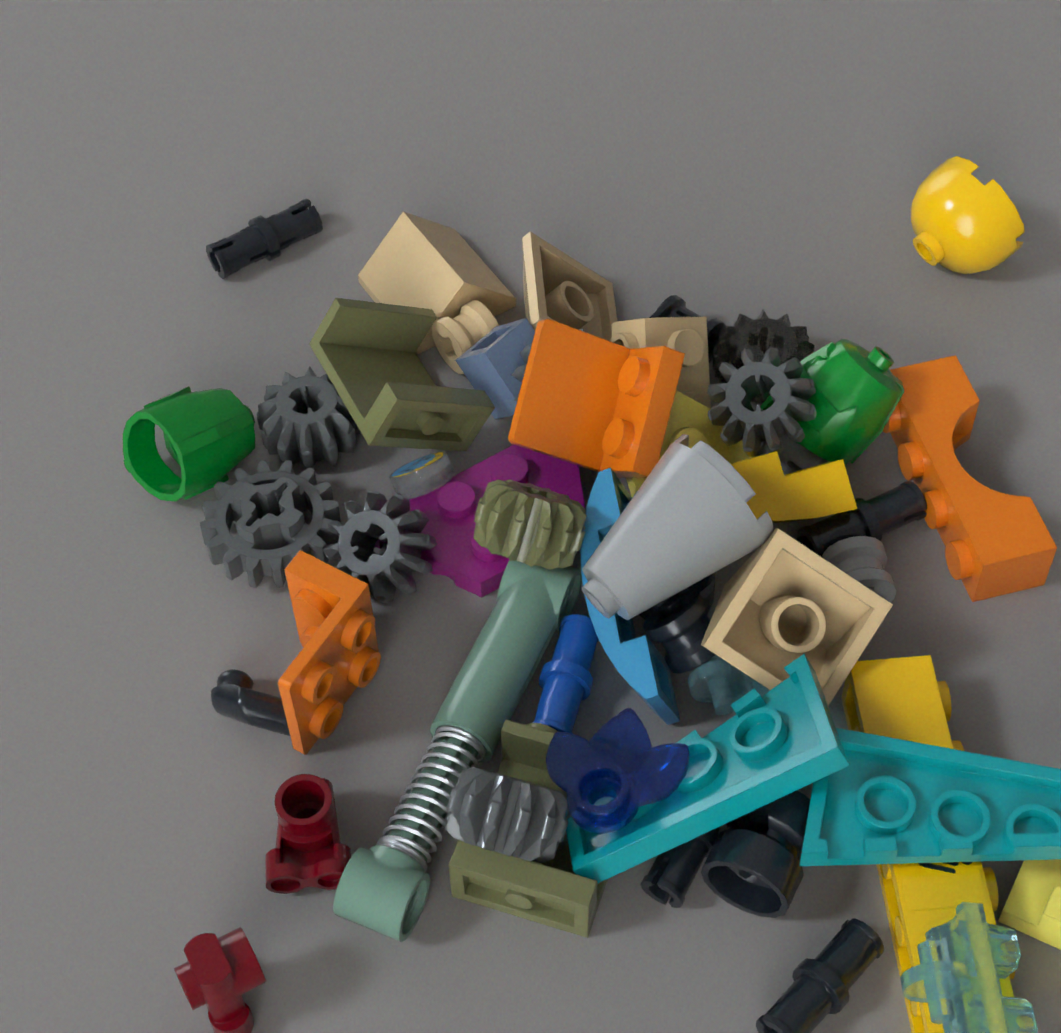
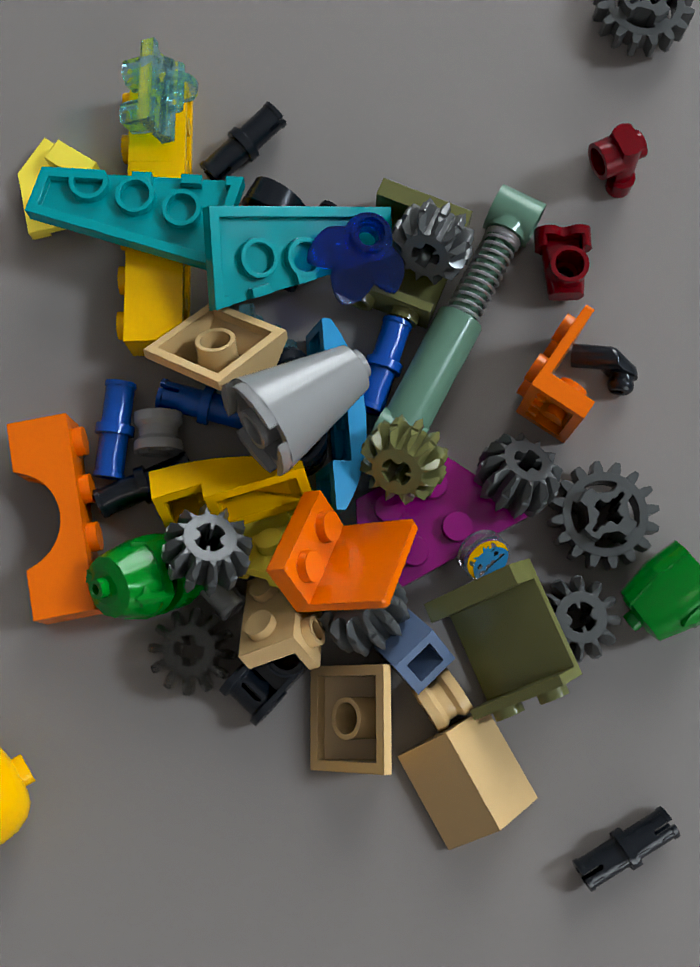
camera: 175 degrees left, 25 degrees up
(918, 582) = (114, 429): none -> blue pin

